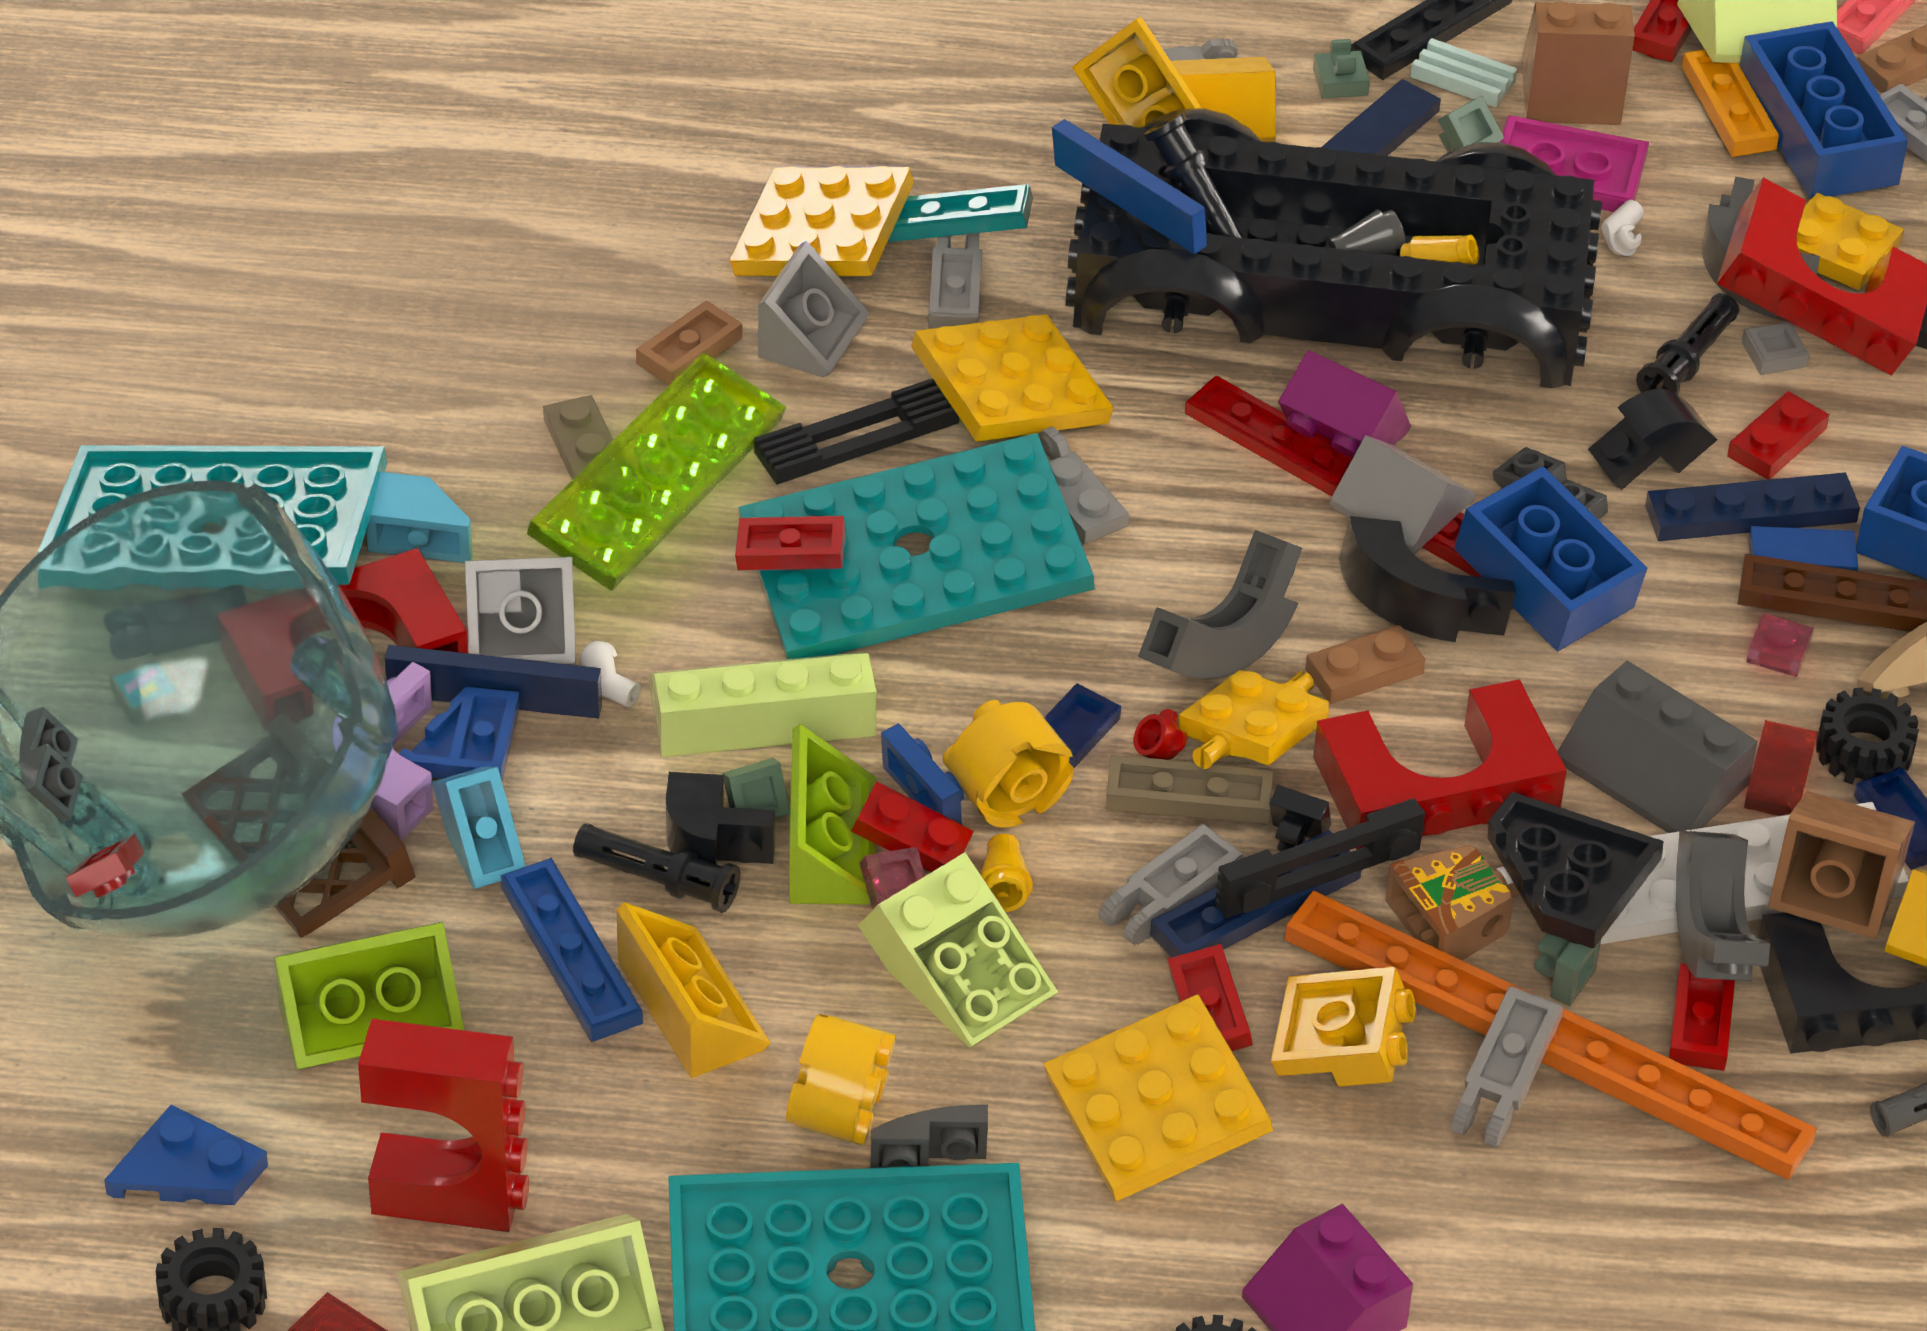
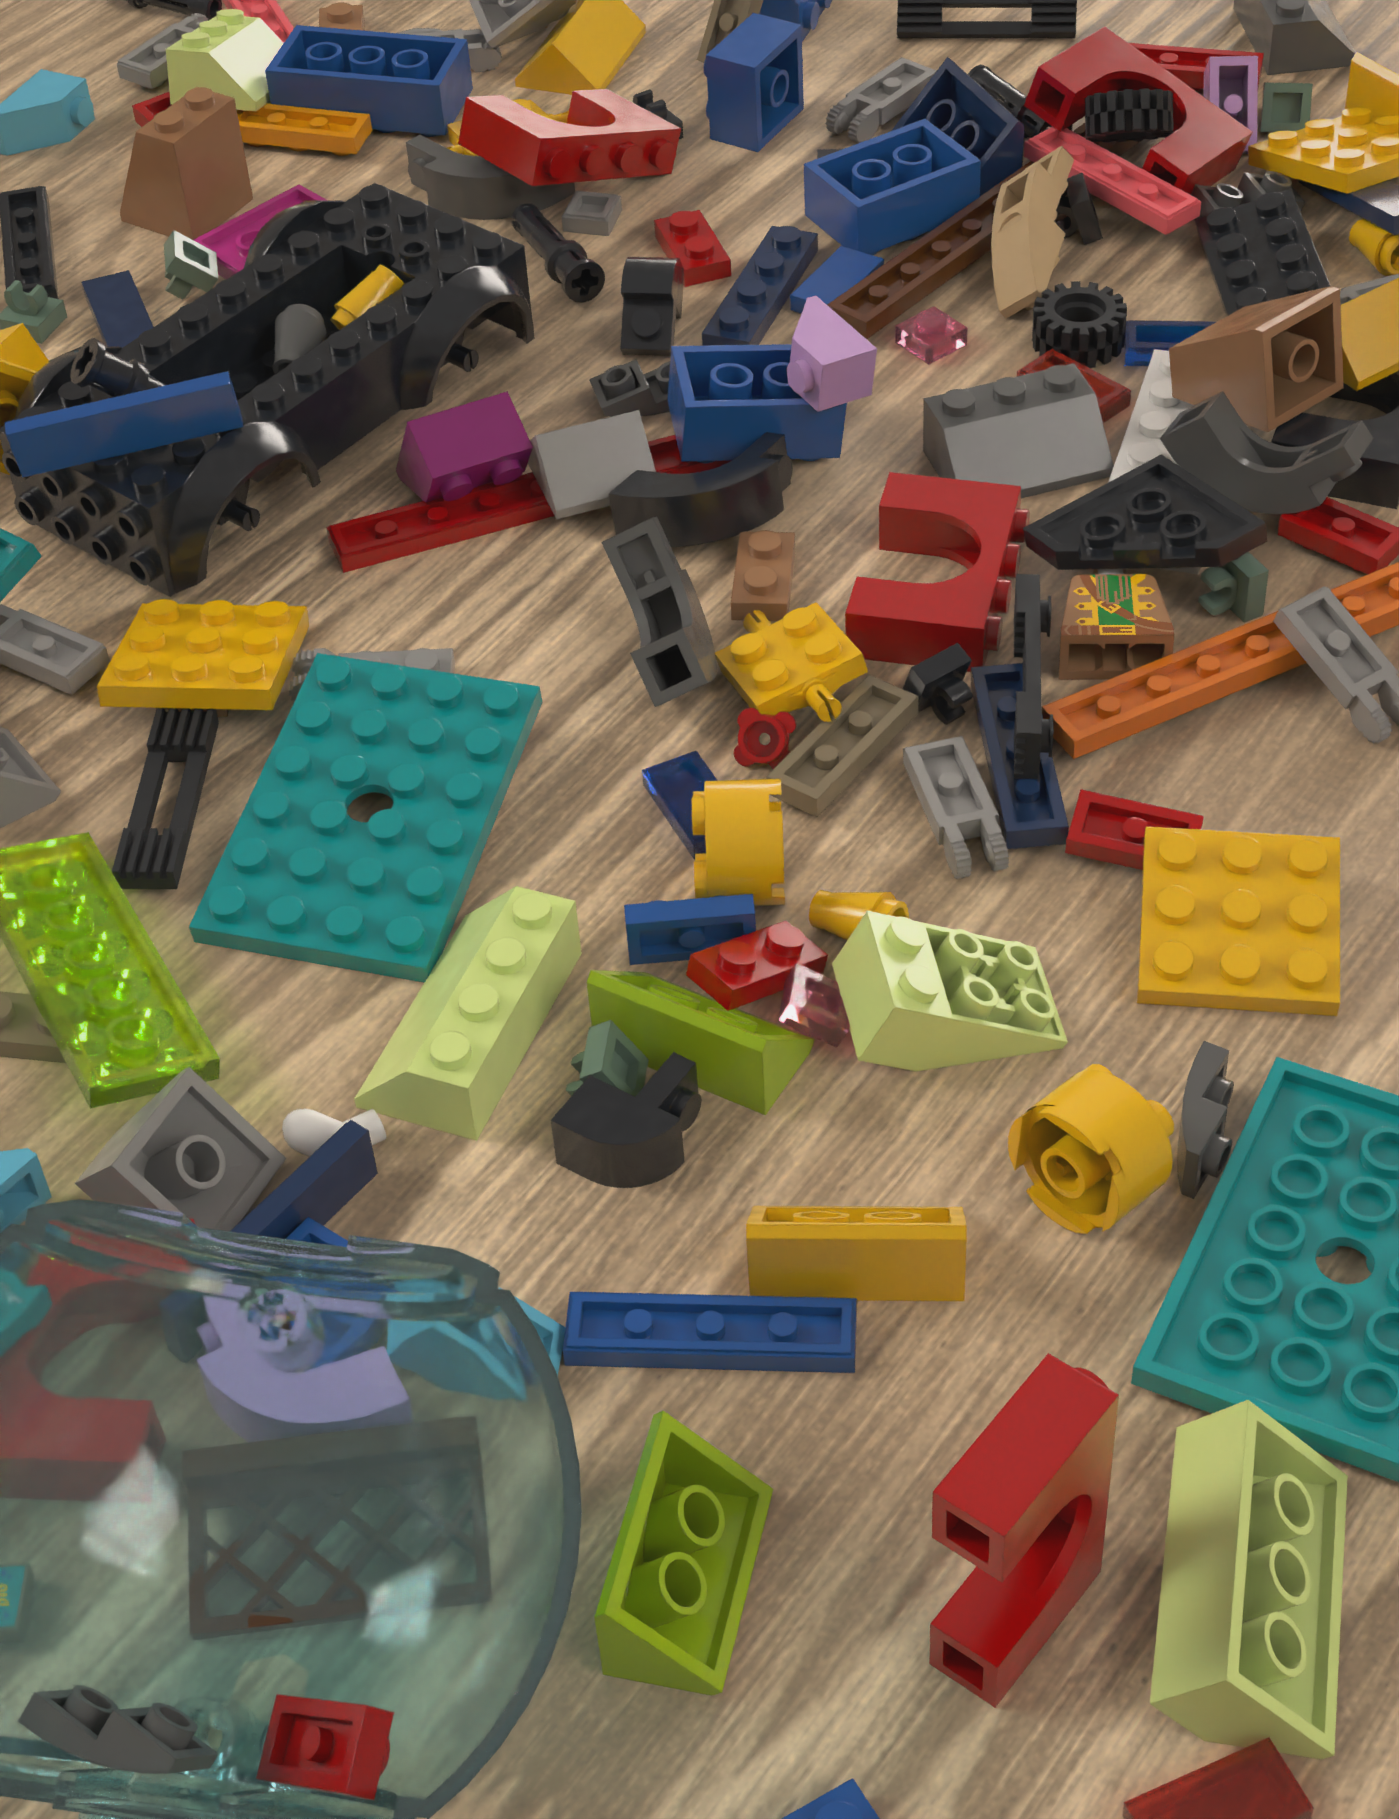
camera: 55 degrees left, 0 degrees up
(682, 871) = (677, 1181): black pin -> none
(790, 543) = (304, 890): red plate -> none
(1344, 1026) = (1227, 752): yellow plate -> none
(1463, 72) = (107, 251): light aqua tile -> none
(1592, 565) = (829, 358): none -> lavender slope

